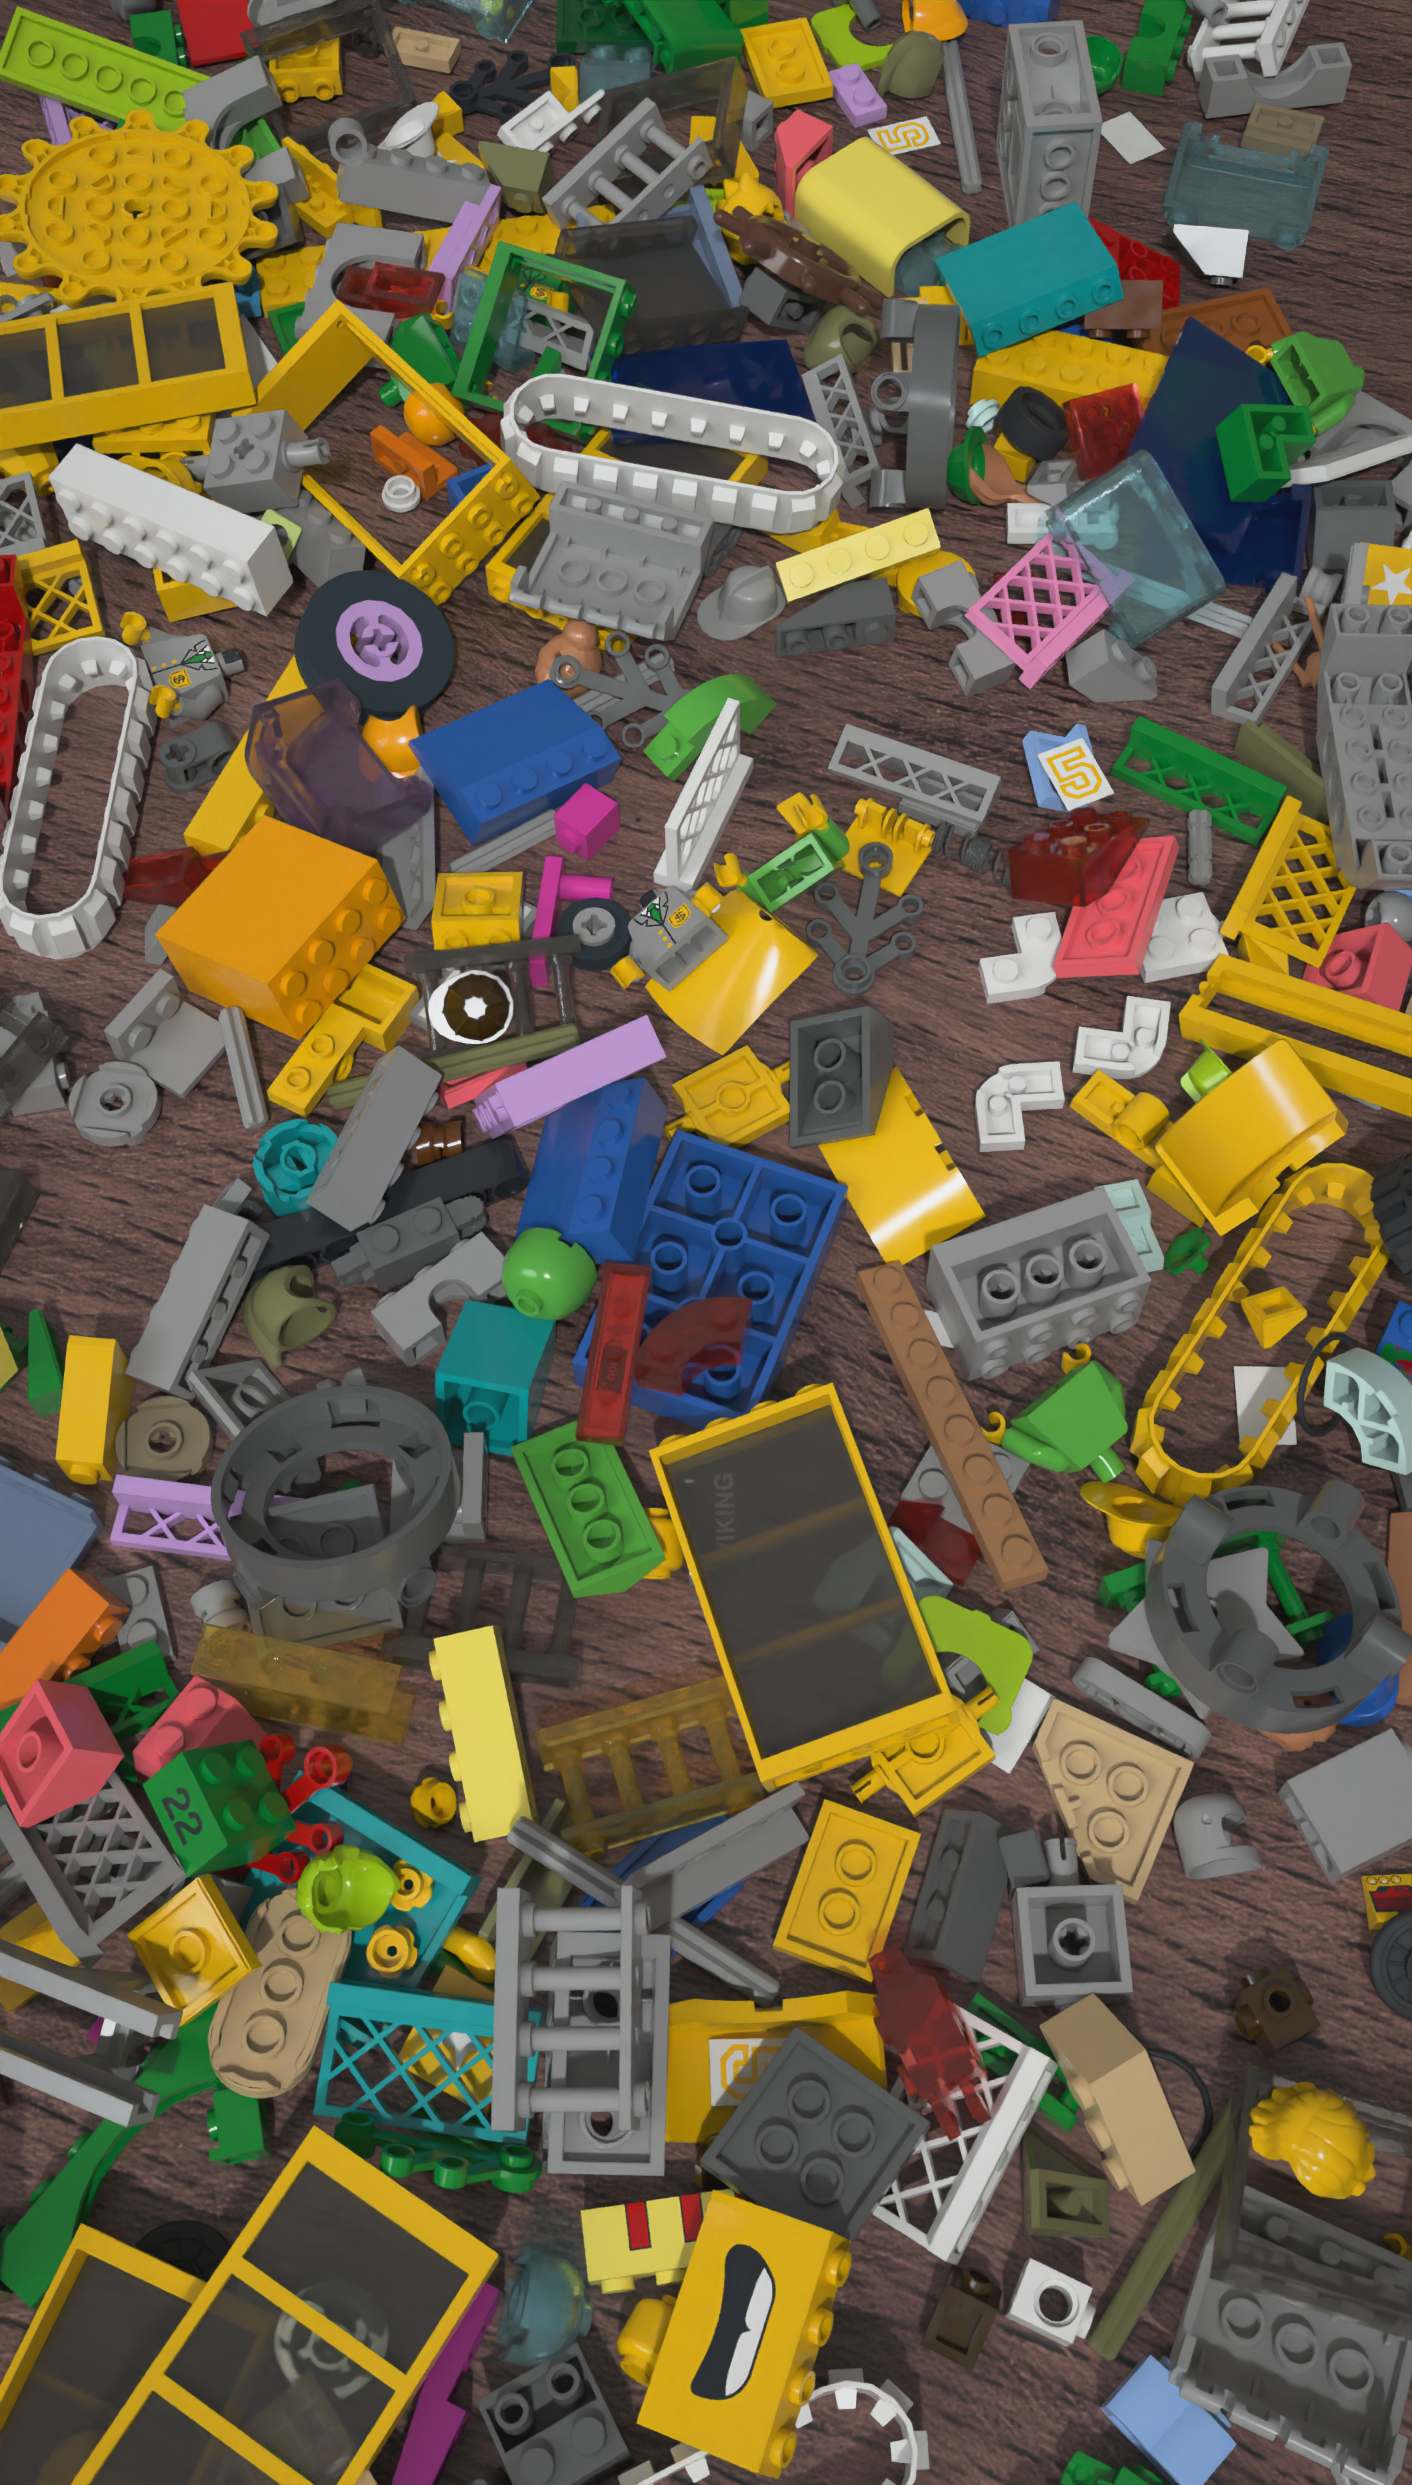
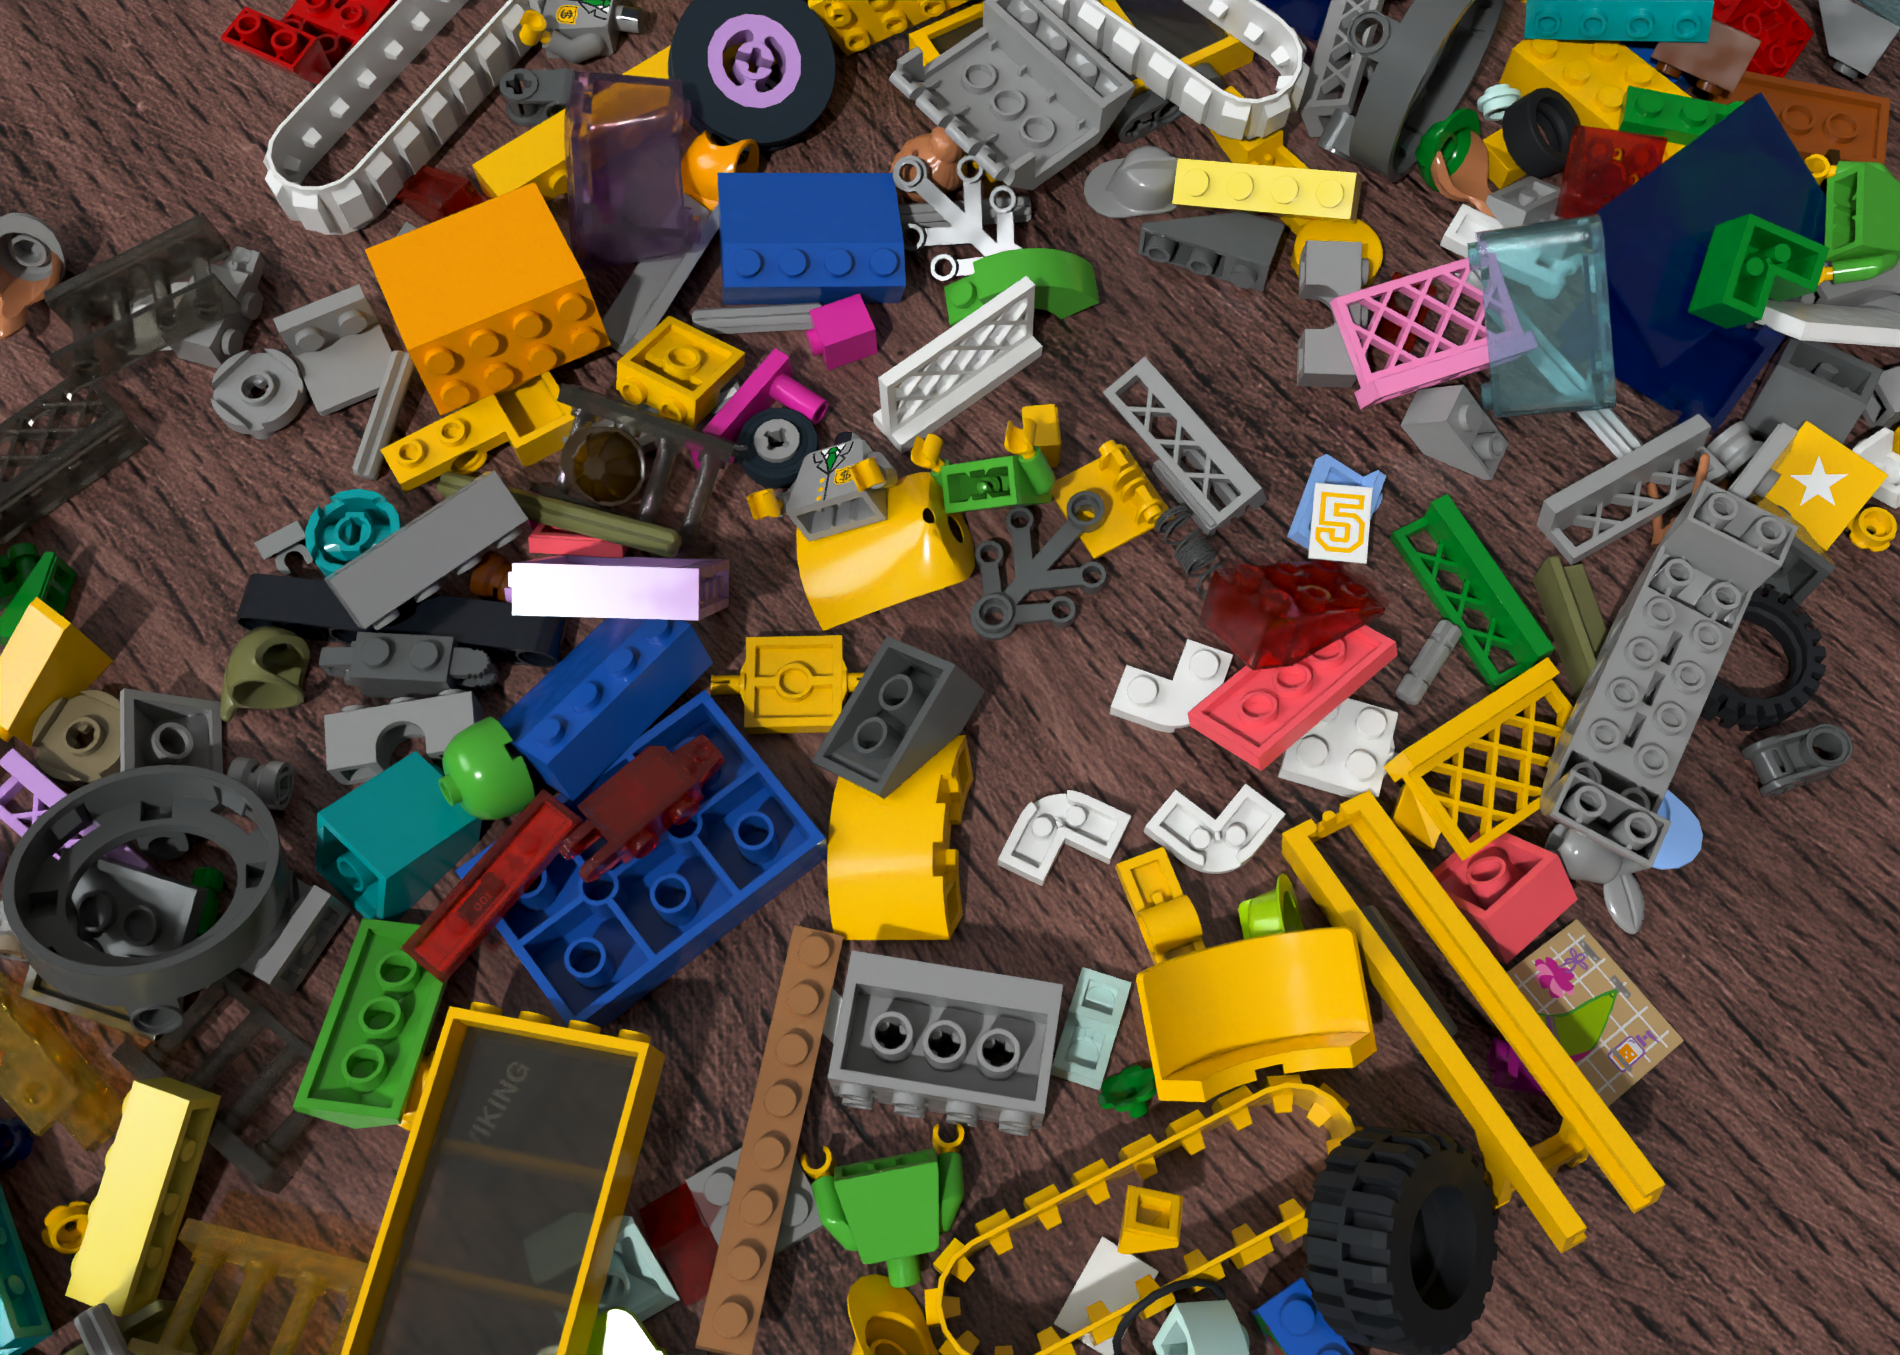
camera: 30 degrees right, 5 degrees up
(197, 1301) = (185, 620): light grey brick -> none
(692, 1341) = (562, 918): clear red brick -> none
(693, 1229) = (642, 804): none -> clear red hinge
(1128, 365) = (1670, 115): none -> green plate

